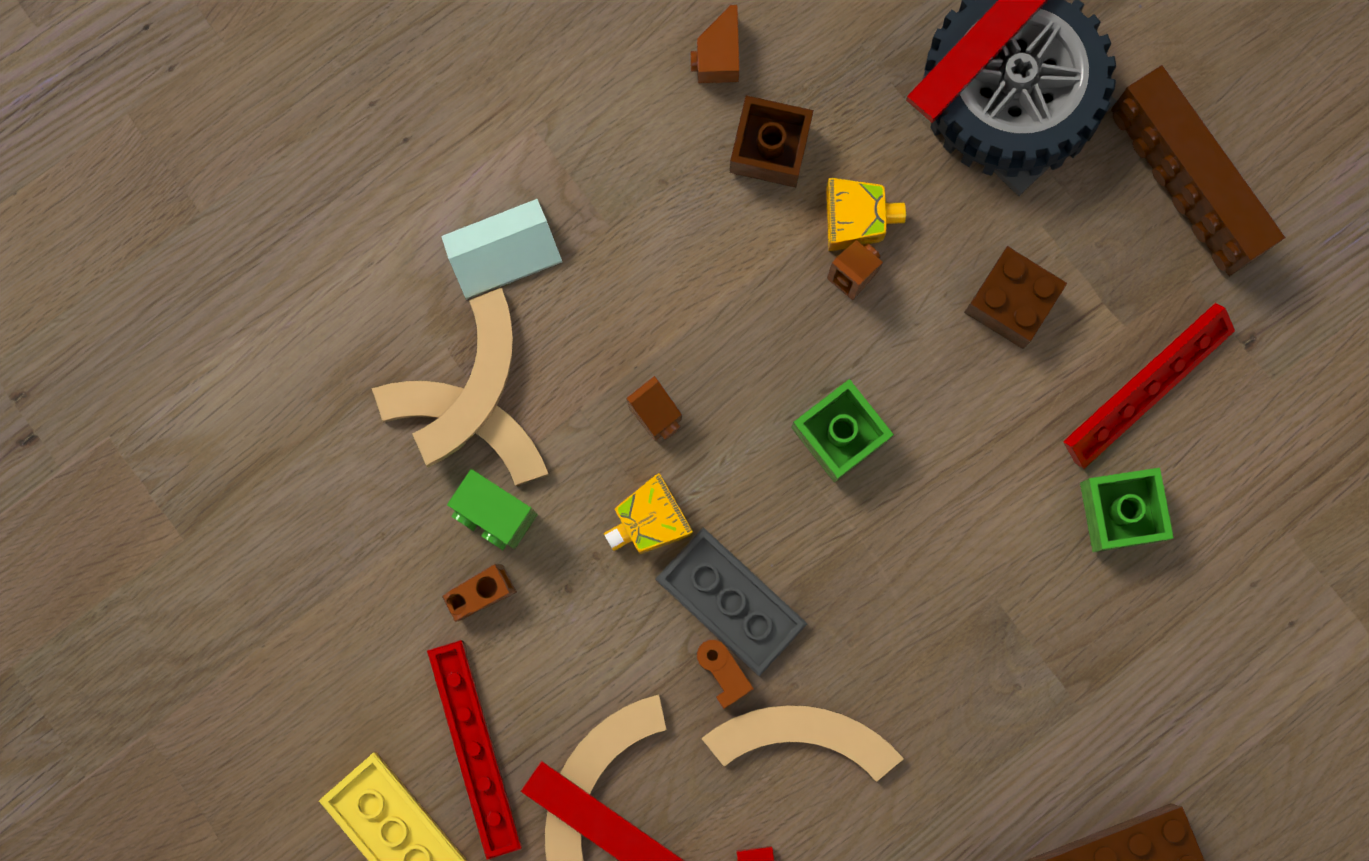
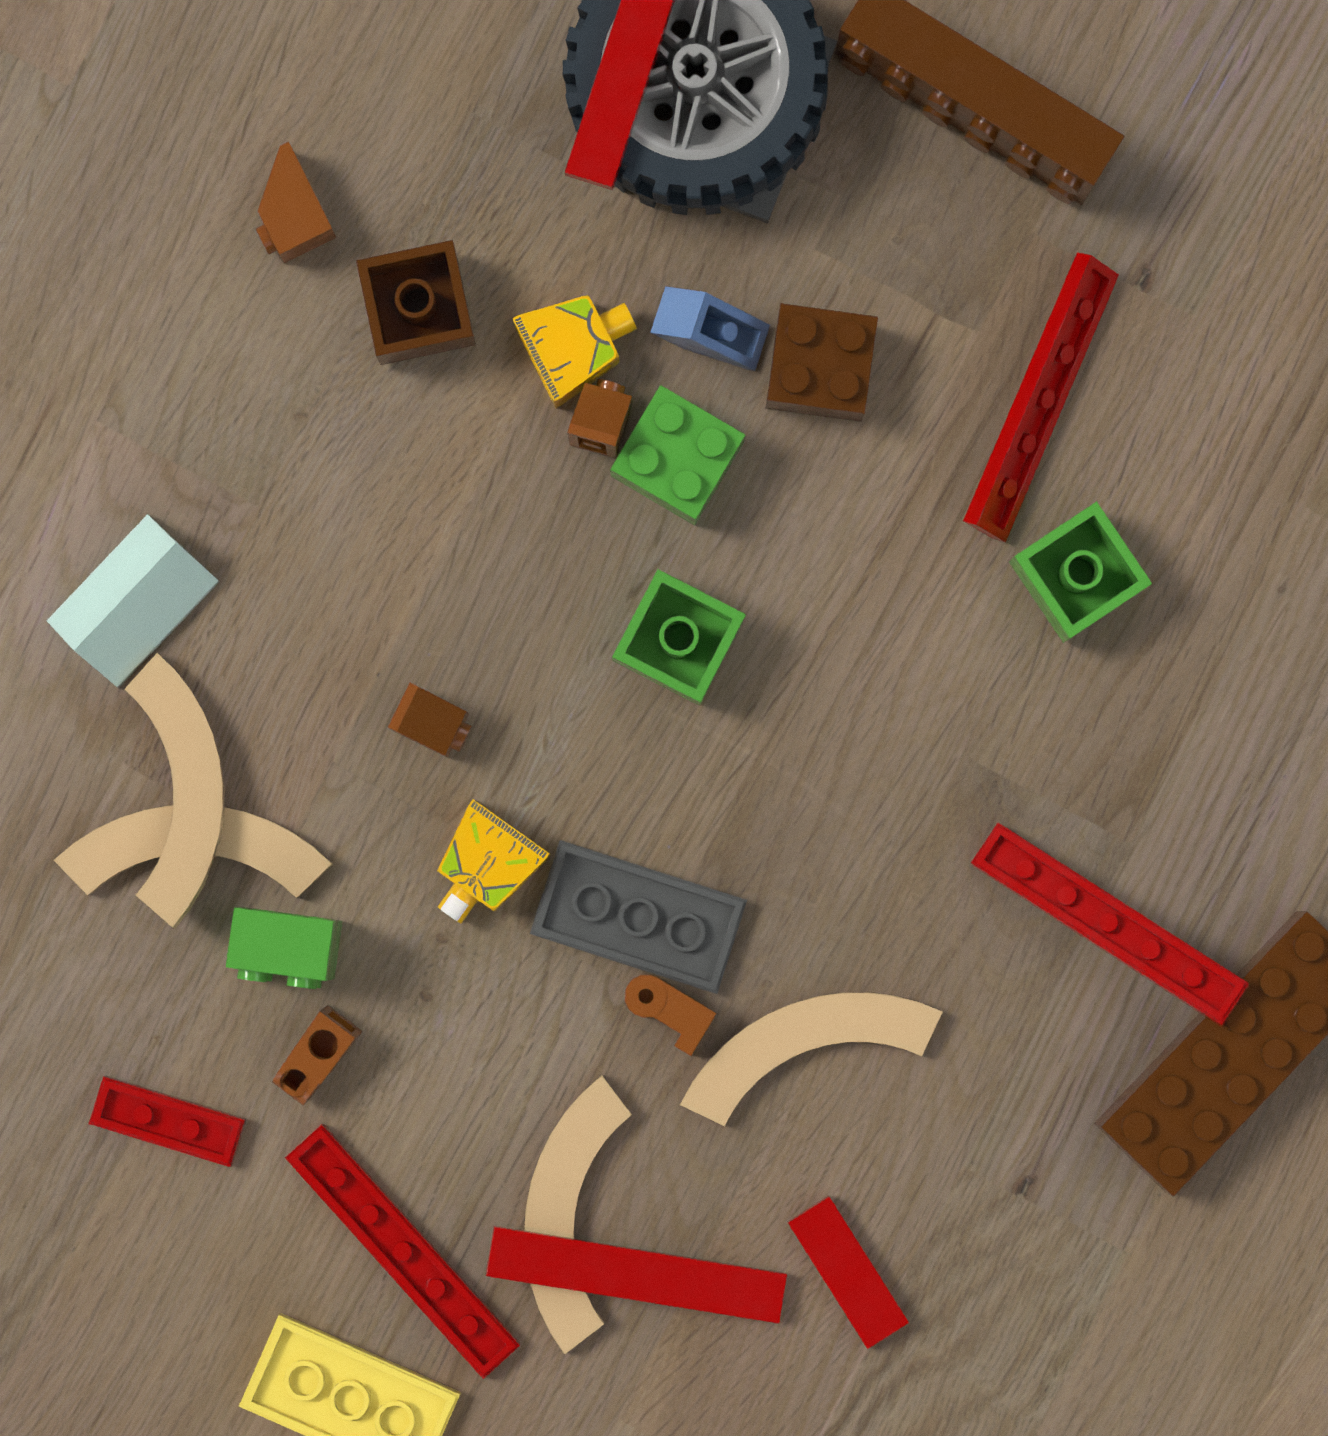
camera: 30 degrees left, 5 degrees up
(363, 591) = (167, 1121): none -> red tile
(894, 314) = (677, 455): none -> bright green brick
(952, 243) = (710, 327): none -> medium blue slope
(1044, 754) = (1110, 924): none -> red tile

